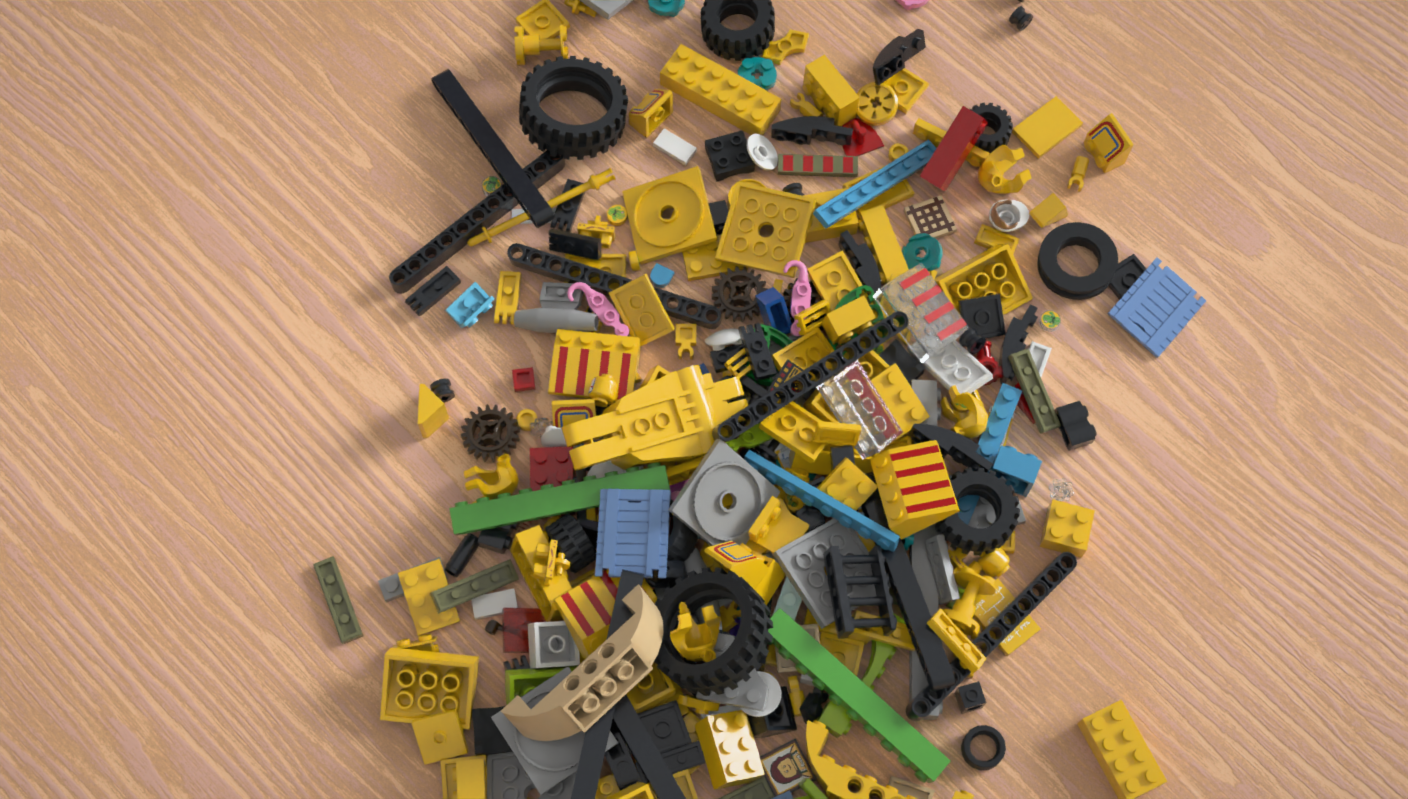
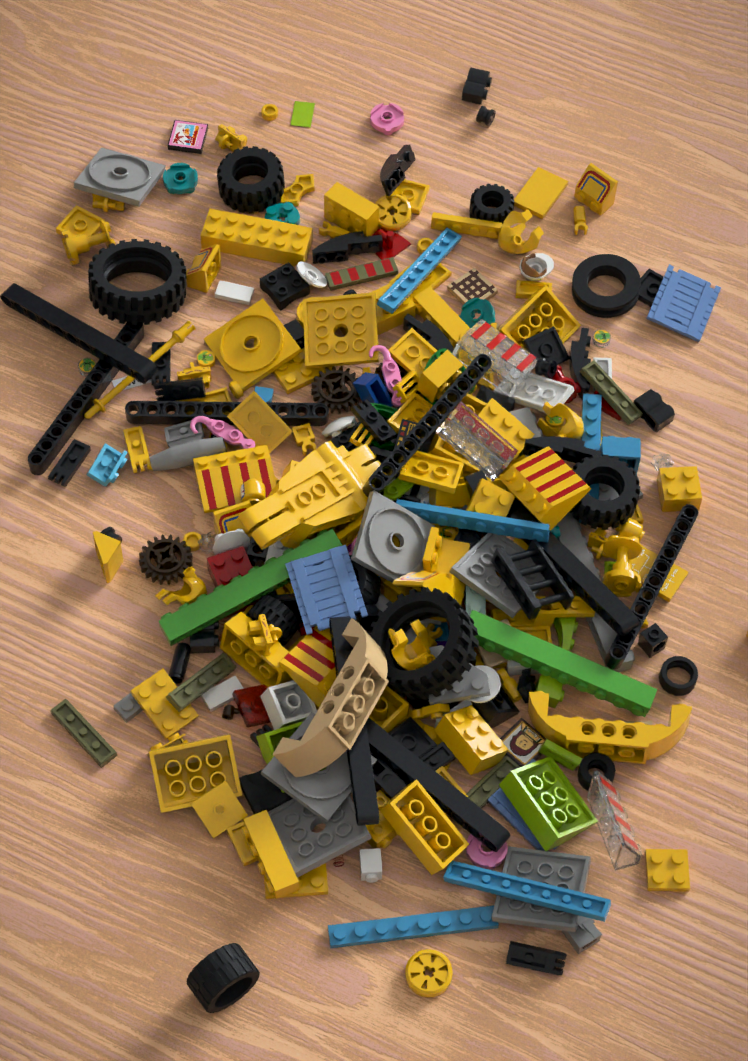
camera: 20 degrees left, 10 degrees down
(523, 379) = (177, 509): red plate -> none
(837, 433) = (466, 462): yellow tile -> none
(942, 569) = (591, 546): light grey plate -> none
(954, 148) = (473, 225): red brick -> none
(956, 641) = (626, 591): yellow tile -> none
(1049, 211) = (569, 253): yellow slope -> none

